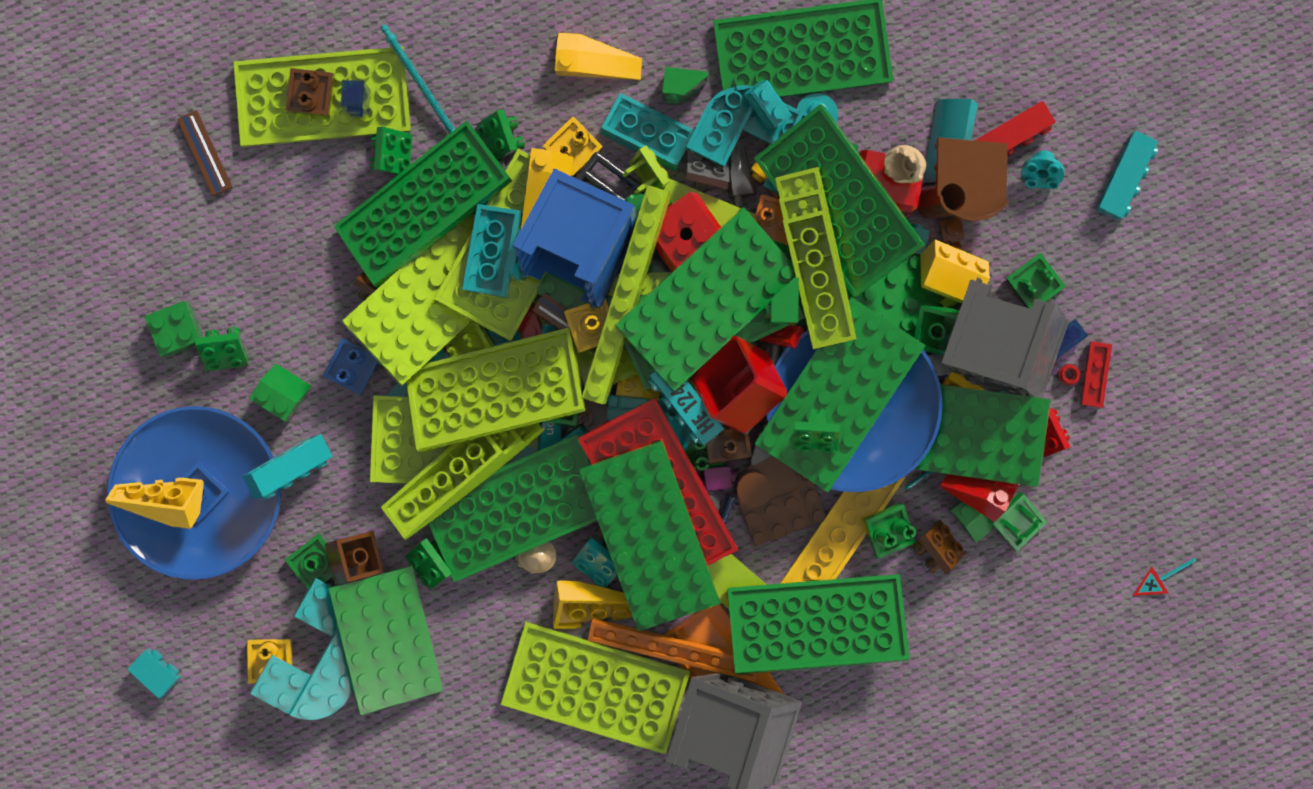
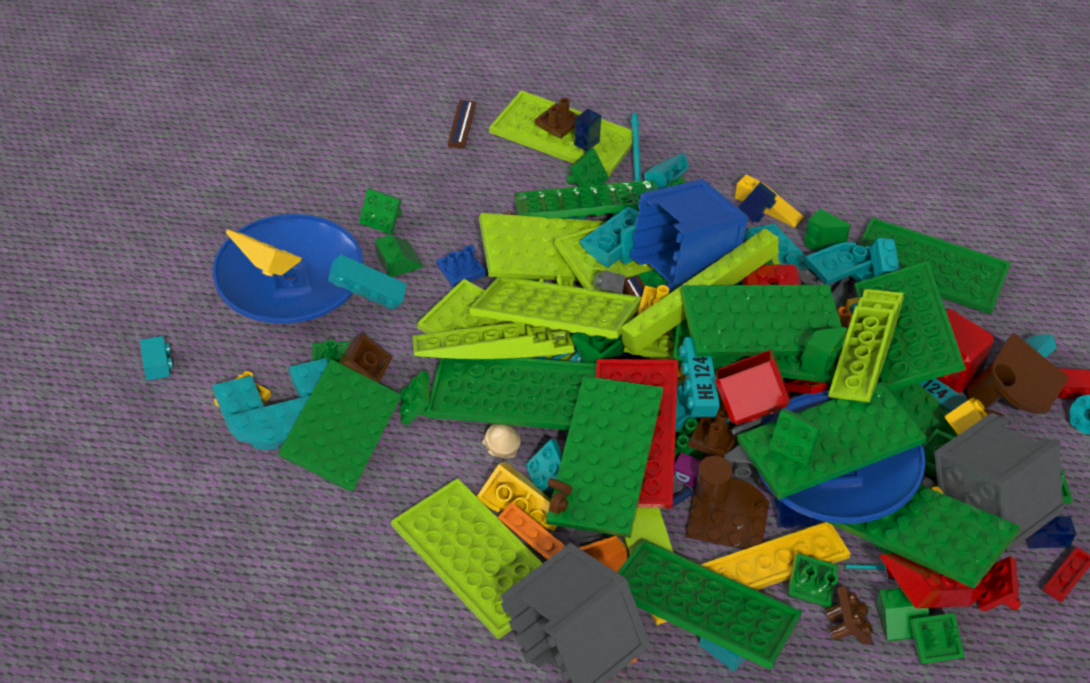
camera: 30 degrees right, 40 degrees down
(174, 328) = (355, 185): green brick -> none
(468, 94) = (667, 170): none -> teal slope
(524, 324) = (609, 282): none -> flat silver brick
(591, 86) = (758, 202): none -> clear blue brick
(645, 618) = (559, 501): none -> reddish brown plate
(904, 164) = (976, 319): tan hair -> none
(1075, 374) = (1044, 558): red plate -> none

